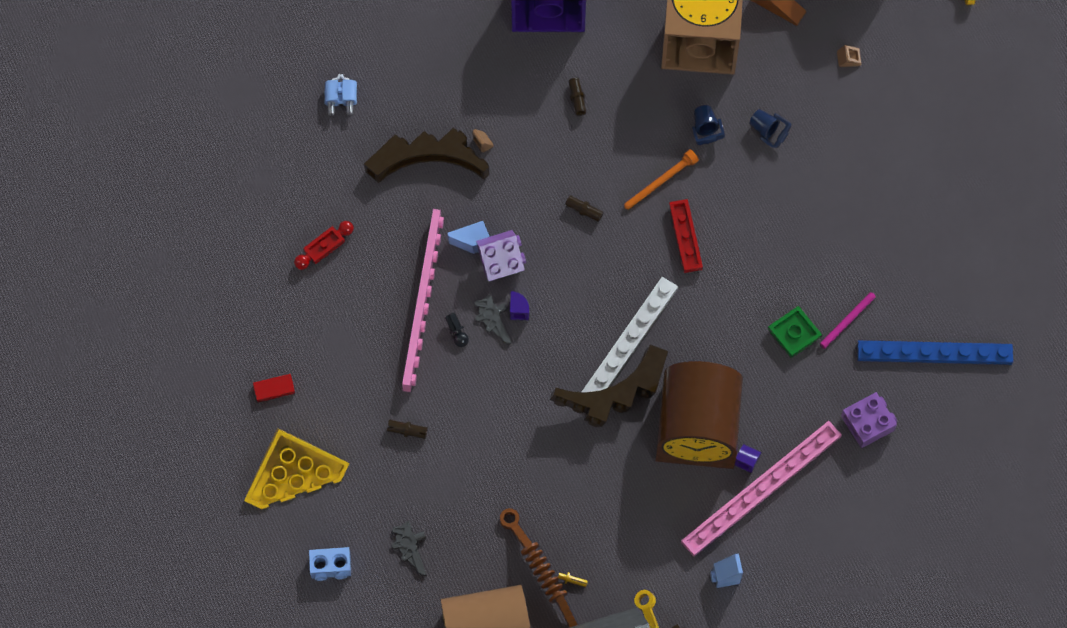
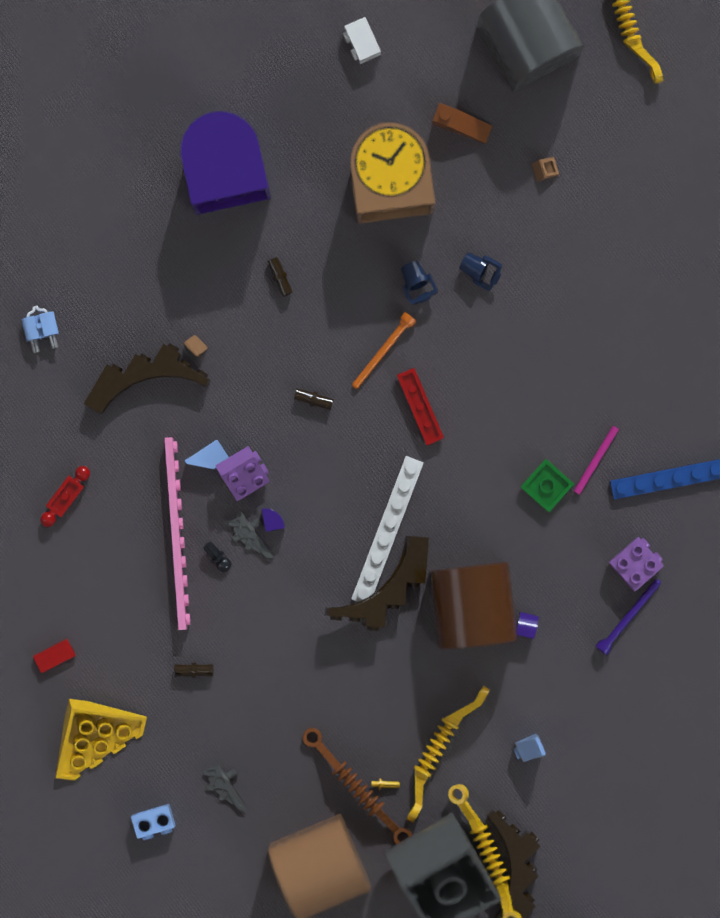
camera: 10 degrees left, 20 degrees up
(652, 531) = (451, 722): none -> yellow piece
(761, 488) = (546, 654): bright pink plate -> none
(823, 492) = (606, 644): none -> dark purple piece

